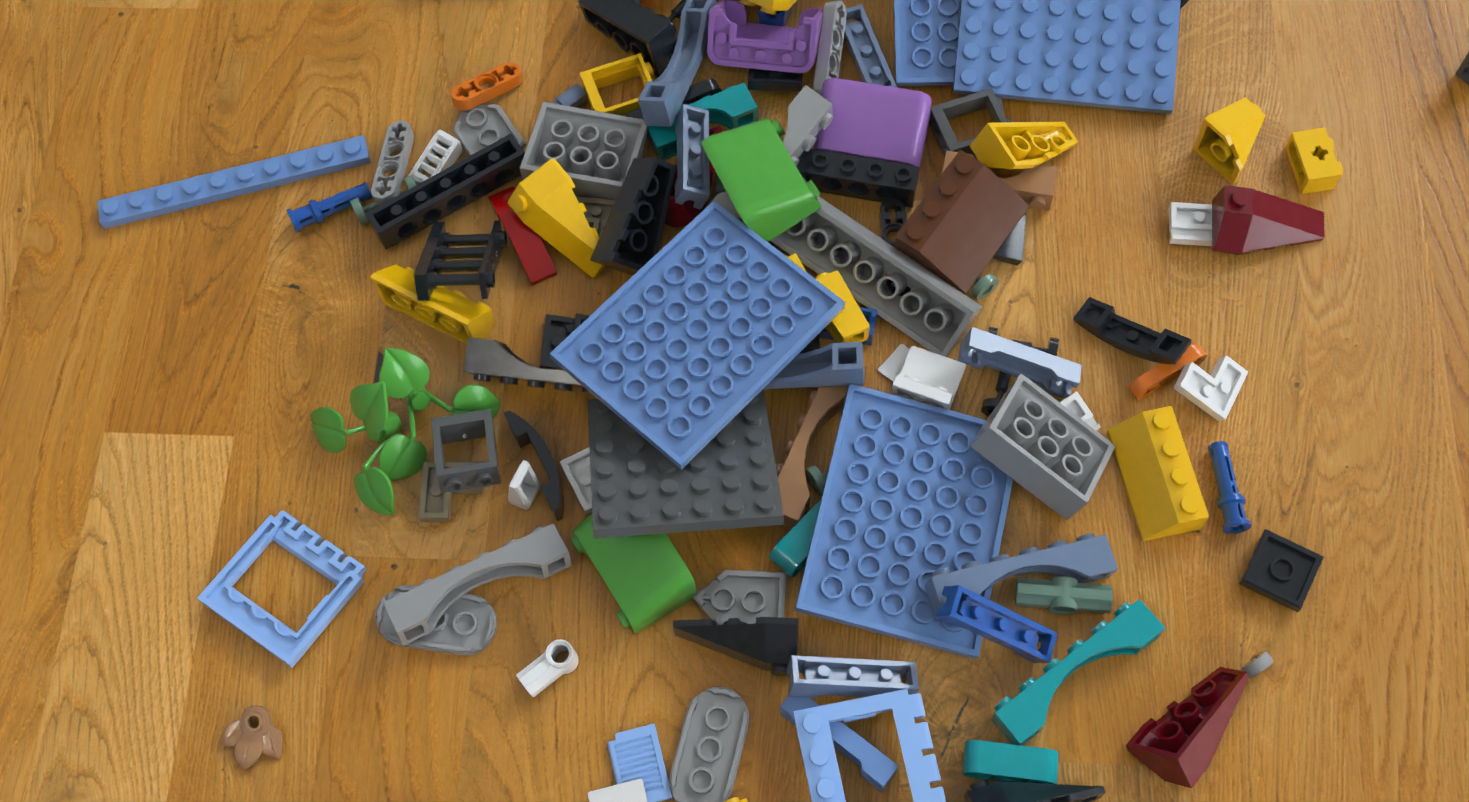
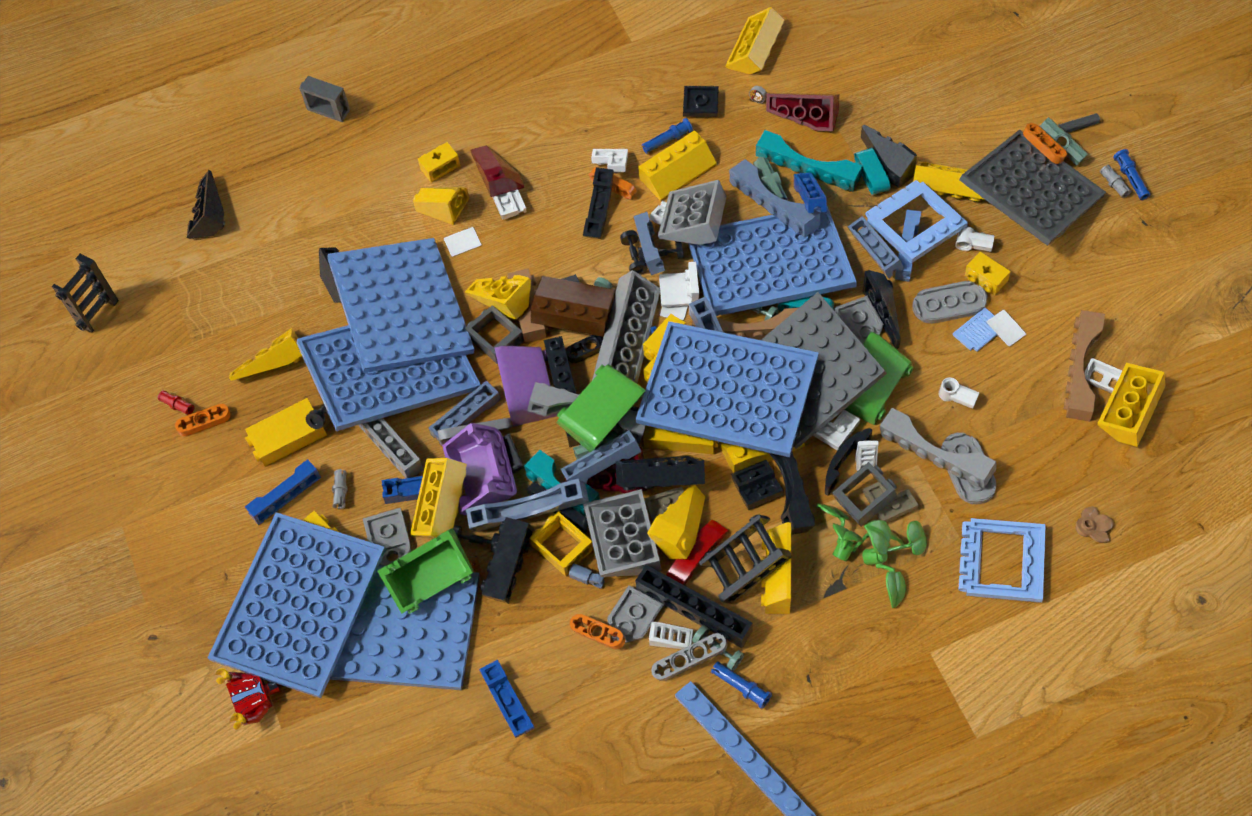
camera: 115 degrees left, 5 degrees down
(1155, 149) = (462, 241): none -> white sticker
(1379, 718) = (755, 42): none -> yellow slope

